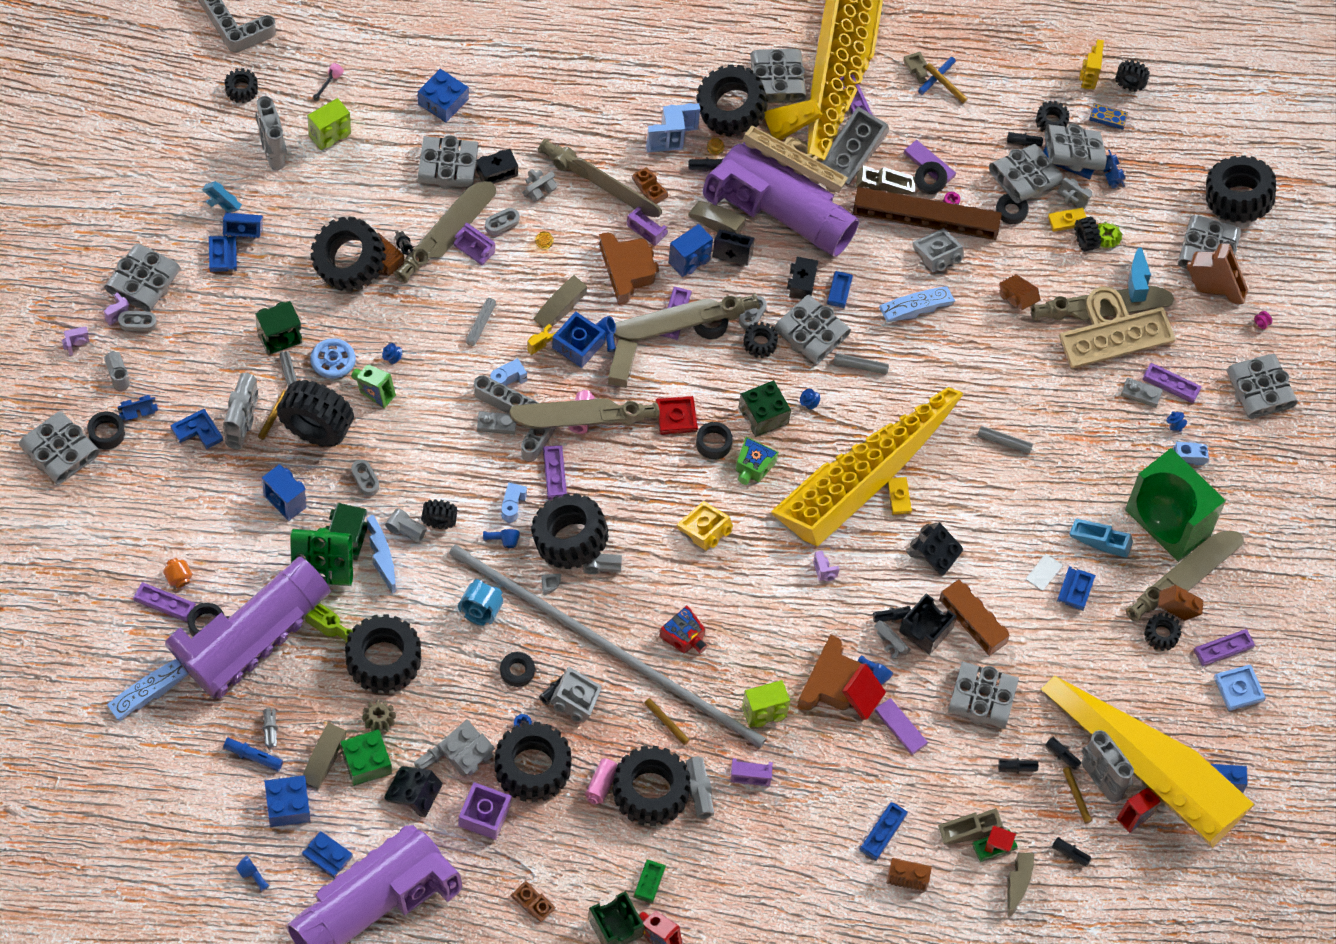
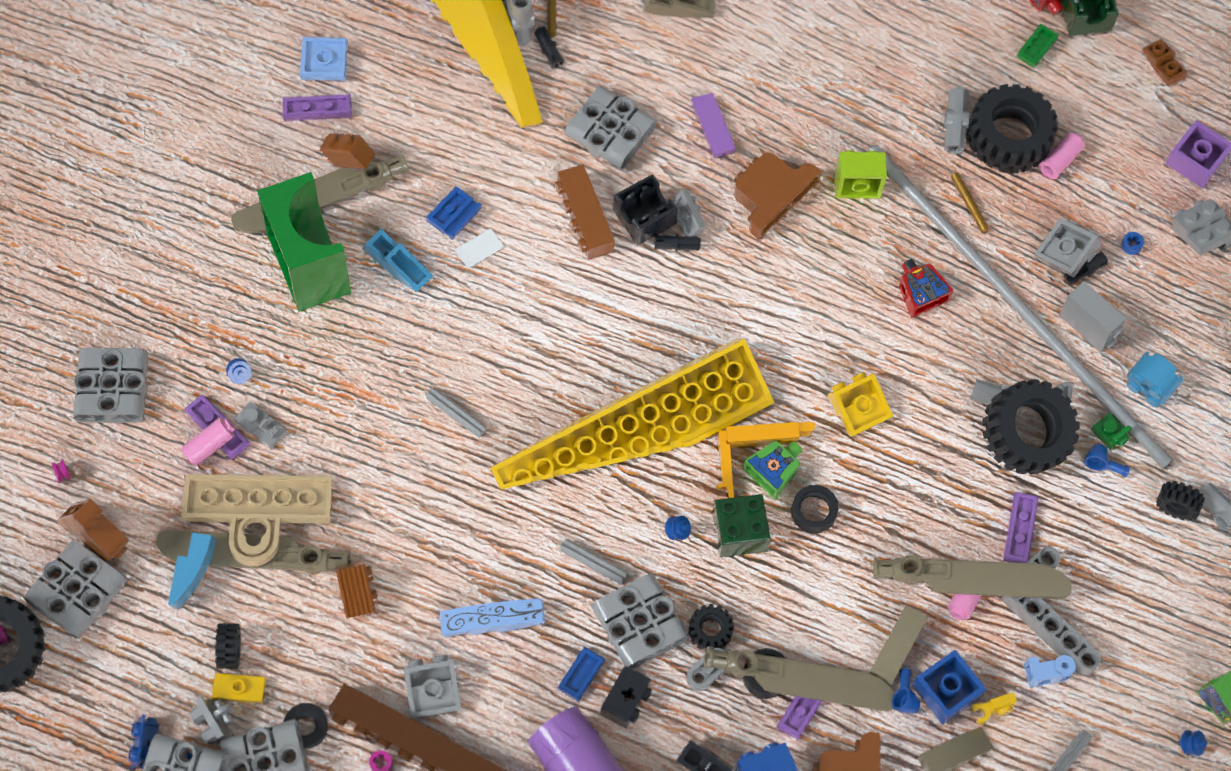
camera: 160 degrees left, 5 degrees up
(495, 423) = (1079, 614): light grey plate -> none
(503, 562) = (1111, 431): none -> green bracket
(513, 495) = (1087, 496): light blue leg -> none
(514, 680) = (1131, 293): black tyre -> none
(536, 738) = (1143, 164): black tyre -> none
(542, 637) = (1093, 317): none -> light grey brick
(677, 415) = (848, 560): red tile -> none
(751, 773) = (895, 121): medium lavender hinge -> none
(776, 476) = (755, 436): none -> light orange hinge
(822, 567) = (737, 311): lavender bracket -> none
(864, 691) = (745, 159): red tile -> none
(881, 672) = (714, 184): blue bar -> none
(883, 831) = (772, 29): blue tile -> none
(899, 496) = (612, 379): yellow plate -> none
(936, 547) = (598, 303): black bracket -> none
(1017, 765) = (603, 48): black axle -> none
(1116, 235) = (190, 660): lime gear -> none
(1163, 621) = (381, 127): black tyre -> none
(1171, 362) = (208, 440): none -> bright pink brick
(1192, 452) = (244, 327): light blue leg -> none

